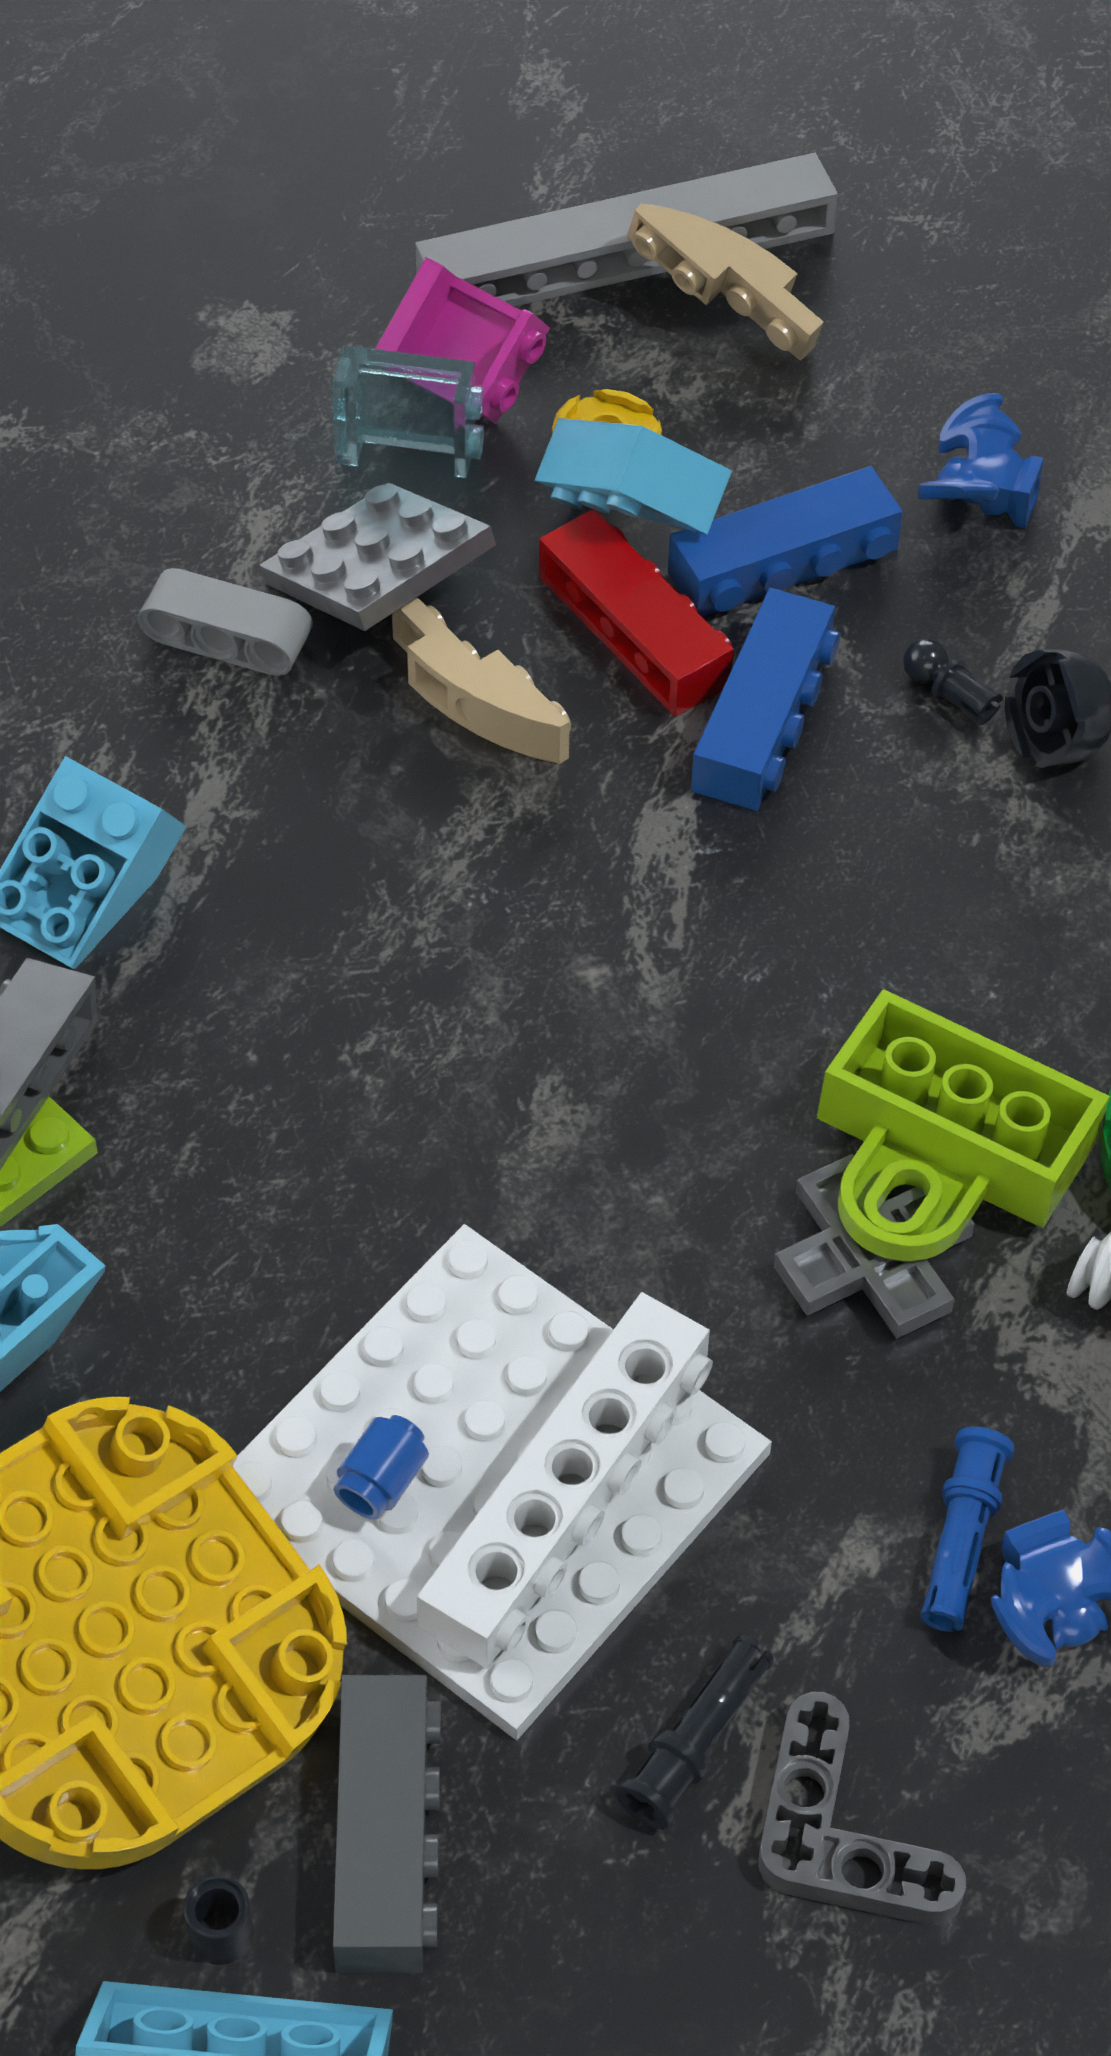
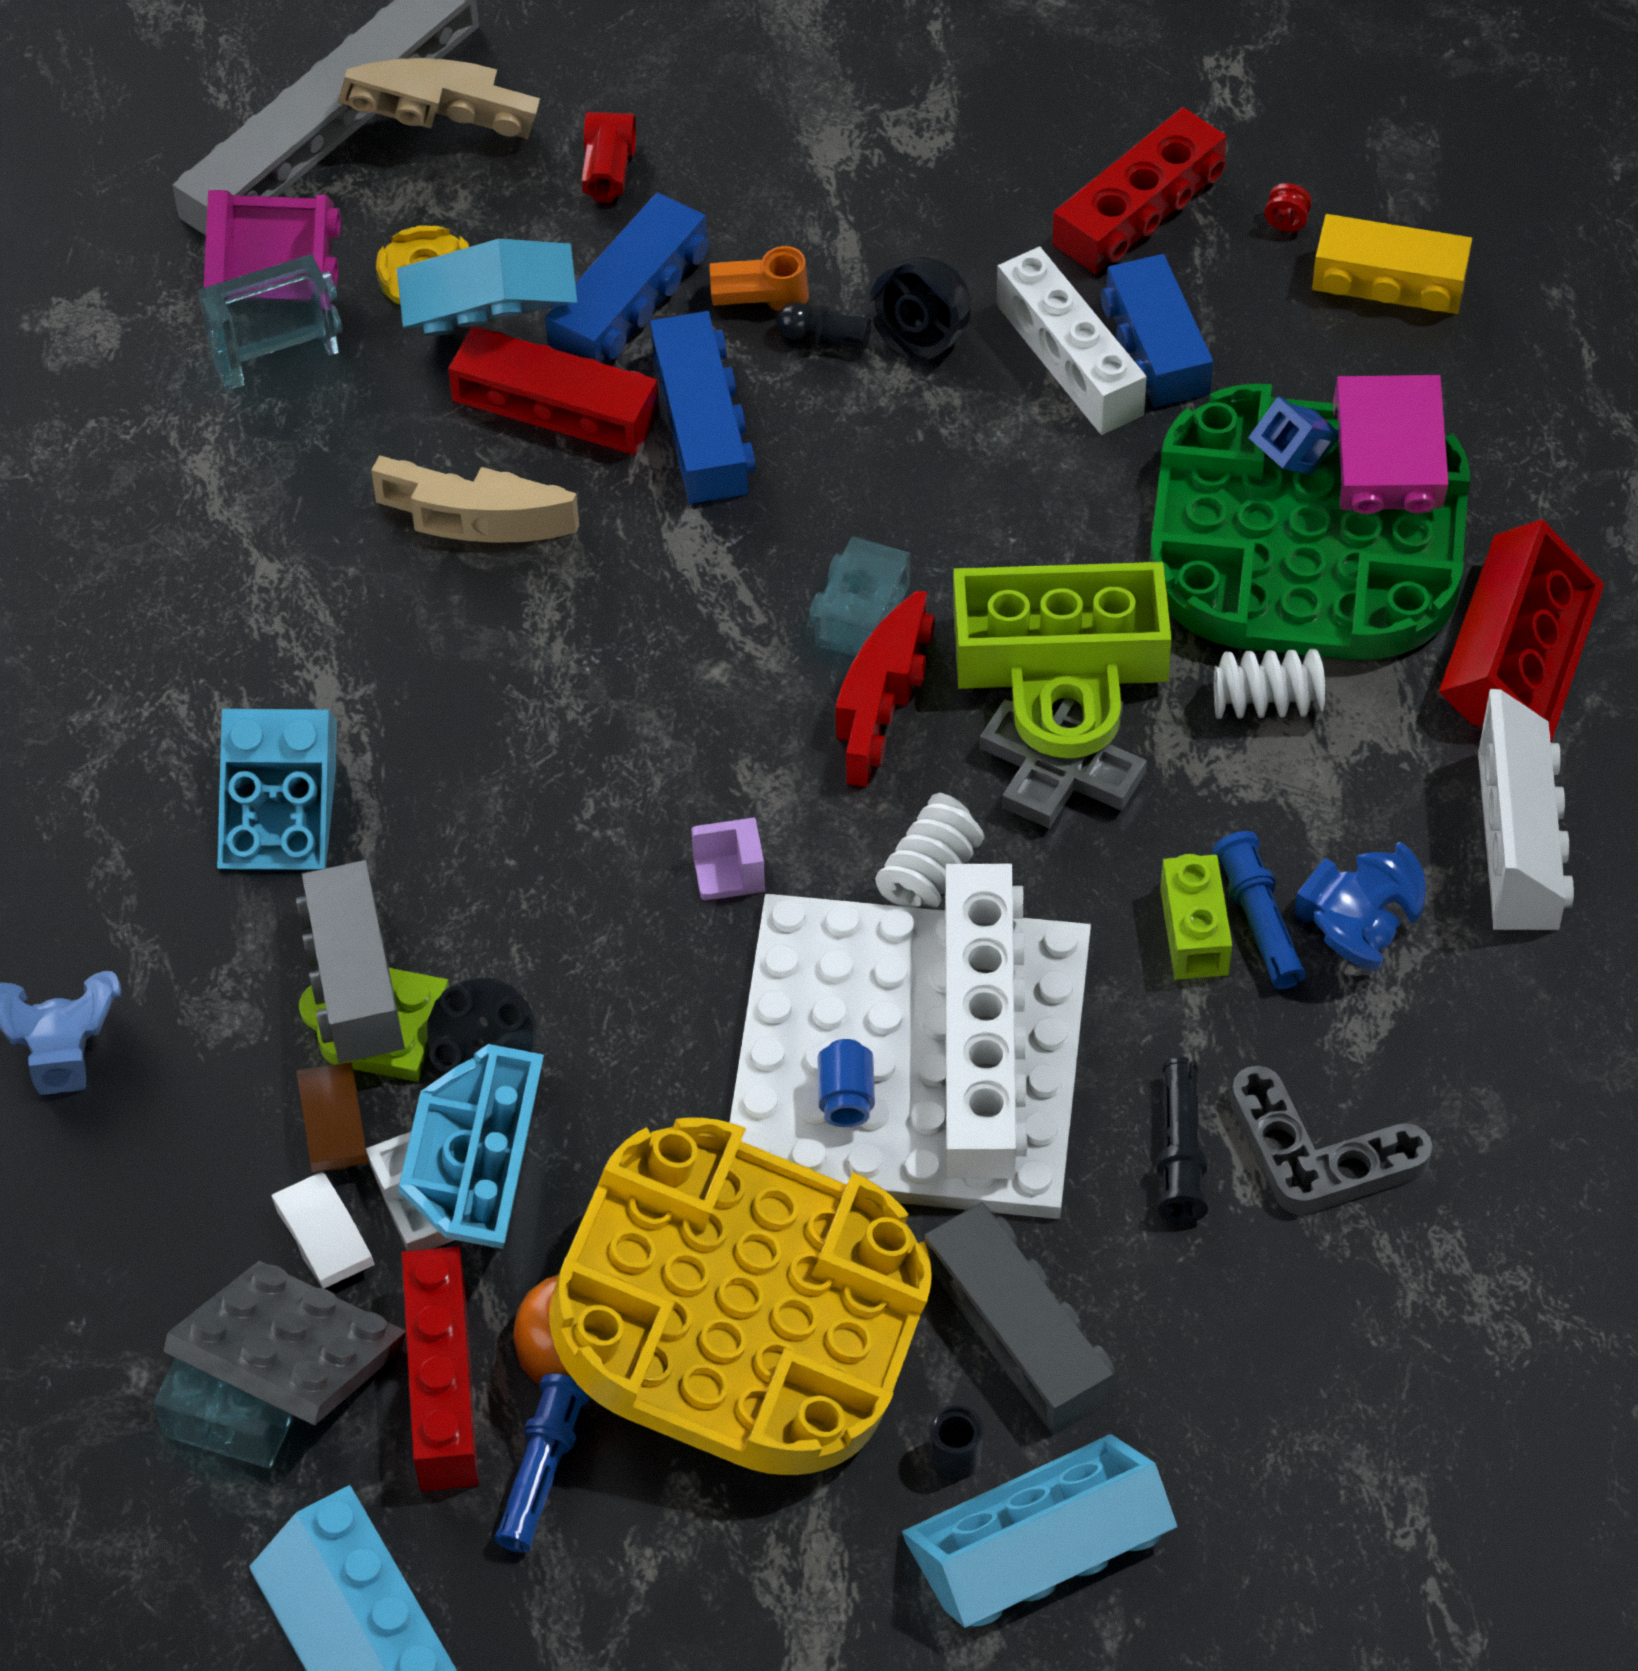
camera: 30 degrees left, 0 degrees up
(90, 1190) = (457, 1015): none -> black plate
(225, 621) = (243, 552): light grey beam -> none
(377, 555) = (328, 443): flat silver plate -> none
(455, 1169) = (728, 859): none -> lavender panel
(657, 1269) = (939, 837): none -> white piece
(746, 1060) = (880, 679): none -> red slope
(783, 973) = (860, 594): none -> clear light blue brick
(866, 399) = (607, 146): none -> red piece
(886, 1495) = (1195, 916): none -> lime brick
(932, 607) = (774, 279): none -> orange piece
(993, 471) = (741, 153): blue animal -> none

